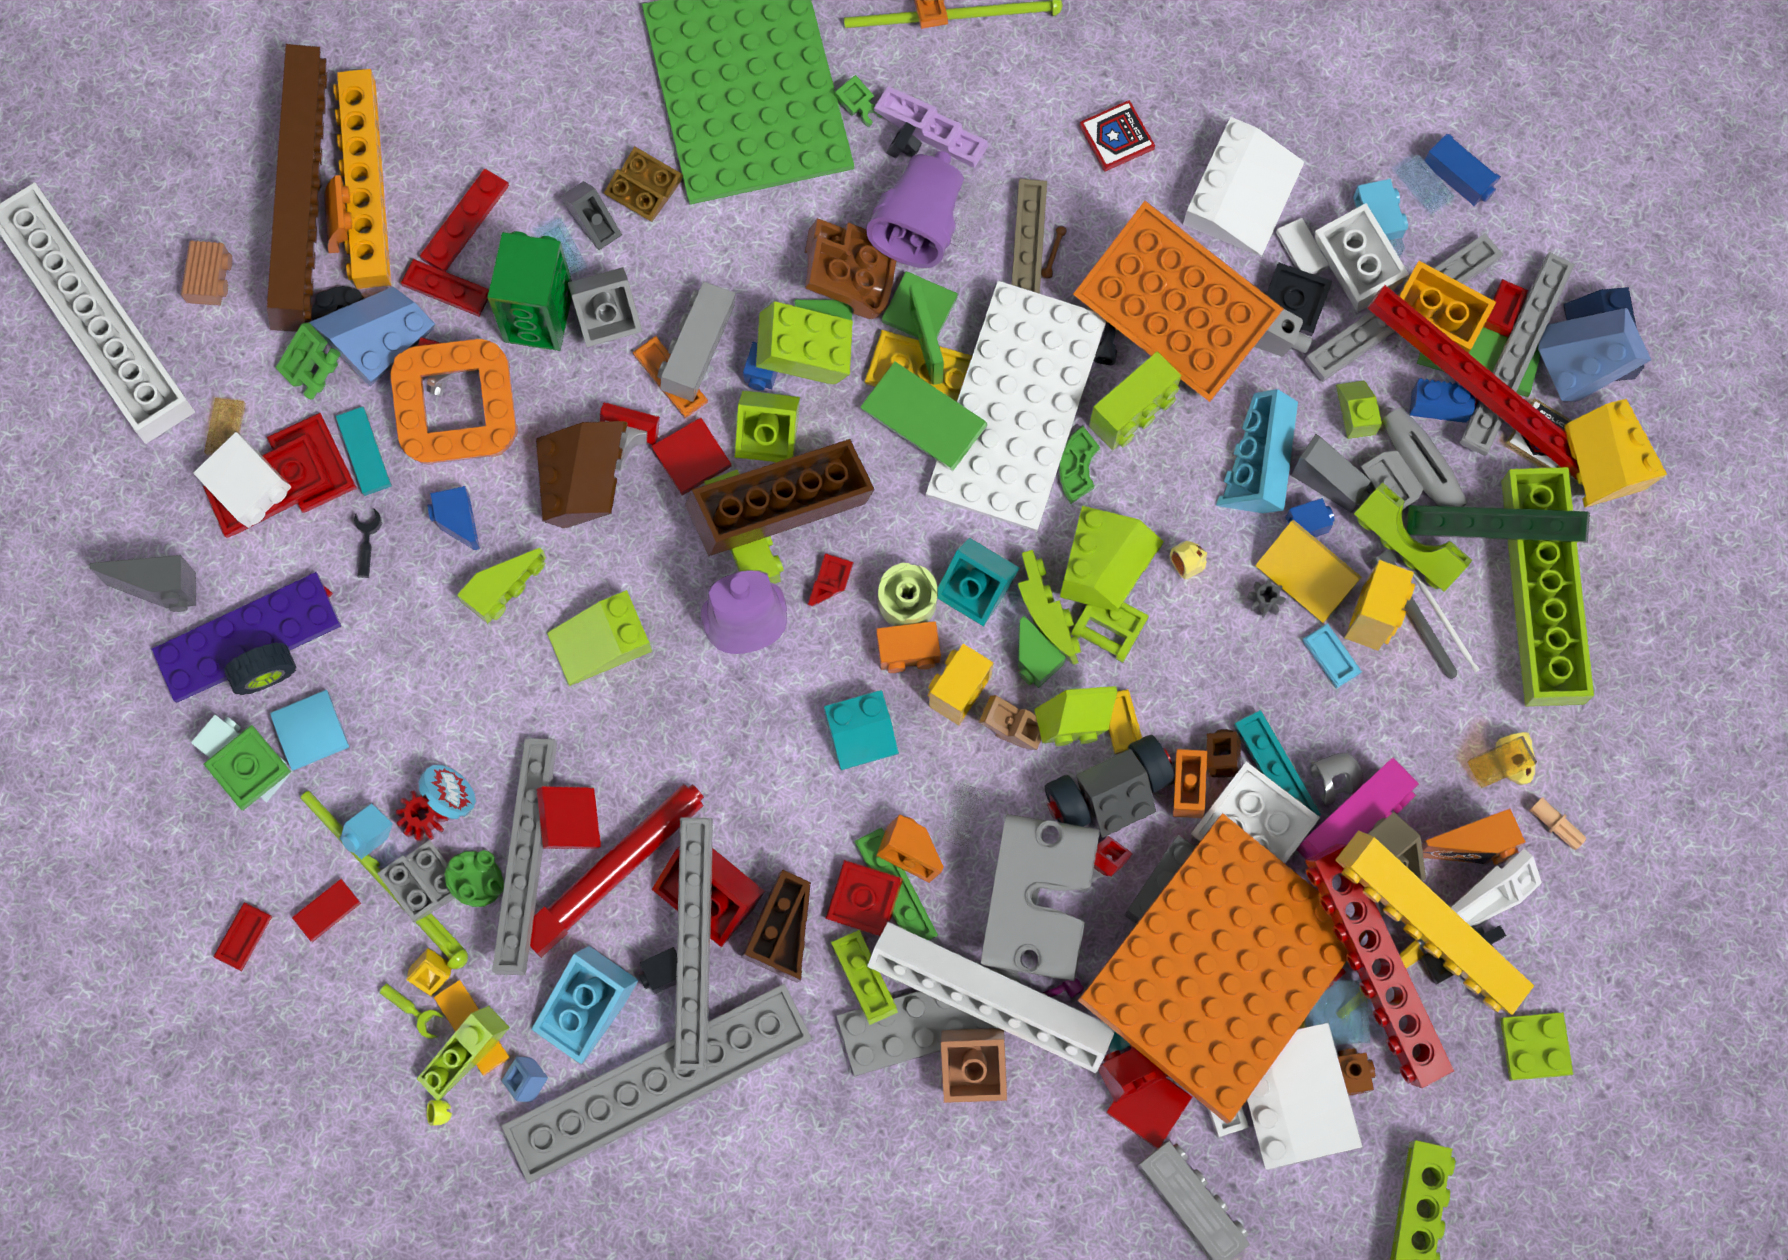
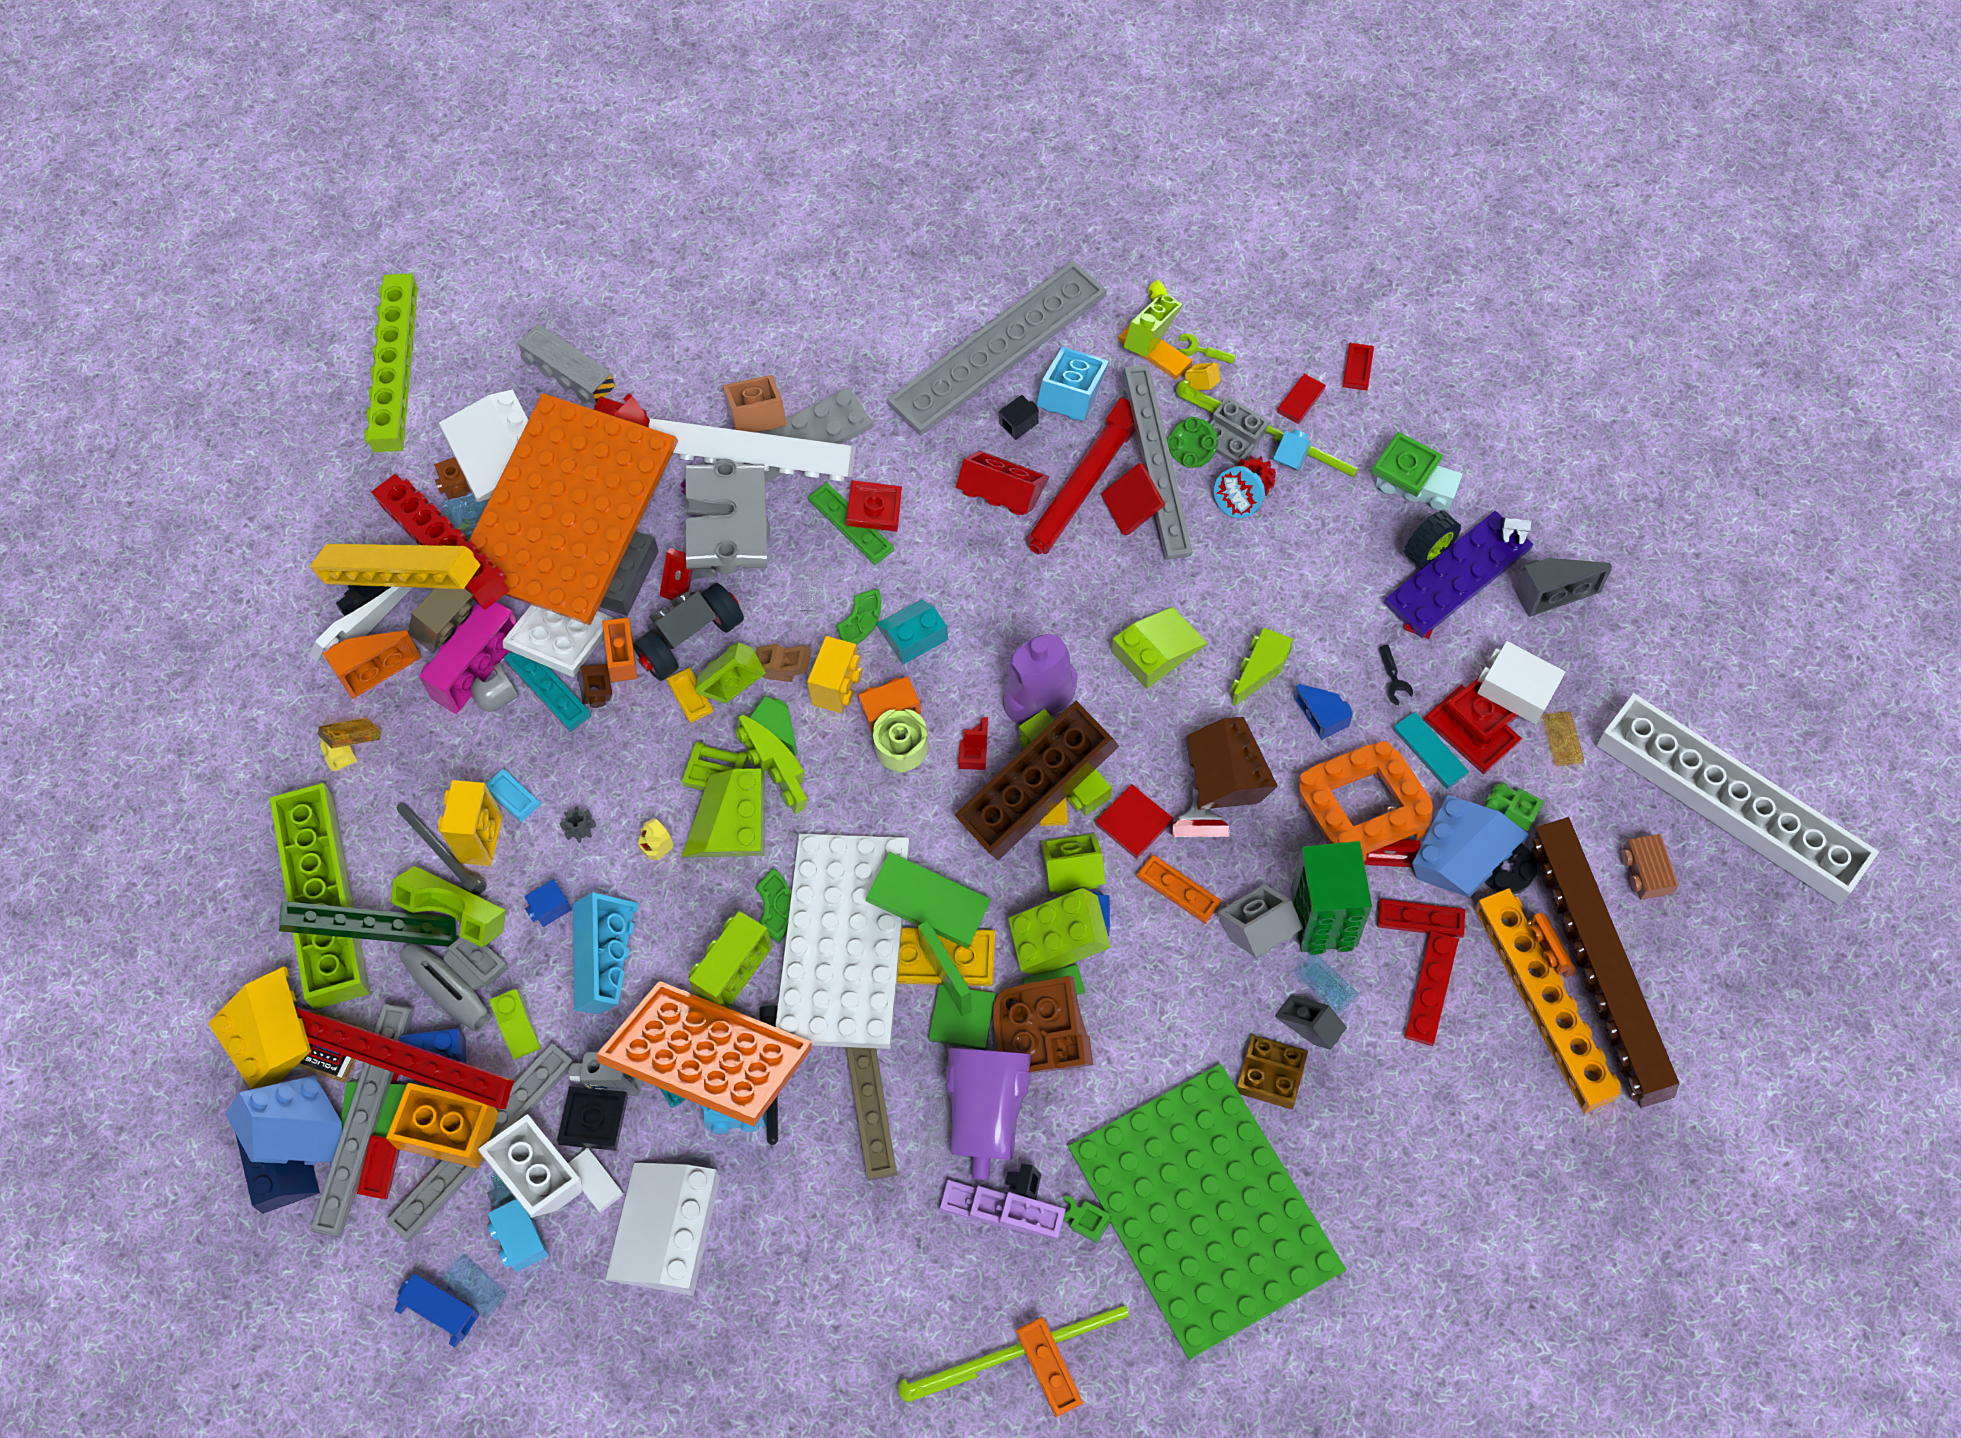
camera: 170 degrees right, 10 degrees down
(165, 659) = (1521, 527): none -> tile
(309, 730) = (1373, 515): medium azure slope -> none
(524, 1079) = (1101, 326): medium blue slope -> none
(693, 944) = (999, 429): light grey tile -> none
(697, 341) = (1162, 918): light grey brick -> none
(780, 930) = (935, 463): reddish brown wedge -> none
(865, 982) = (867, 457): lime plate -> none
(910, 848) = (847, 546): orange slope -> none
(912, 761) = (863, 617): none -> bright green tile
(976, 581) = (842, 774): teal slope -> none
(1047, 272) = (846, 1087): reddish brown hinge -> none
(1117, 135) = (807, 1255): tile -> none
(1308, 571) = (542, 853): yellow tile -> none
(1331, 475) = (533, 945): slope -> none
(1443, 618) = (404, 845): white piece -> none
(1536, 1046) = (303, 536): lime plate -> none
(1558, 824) = (297, 705): light nougat axle -> none

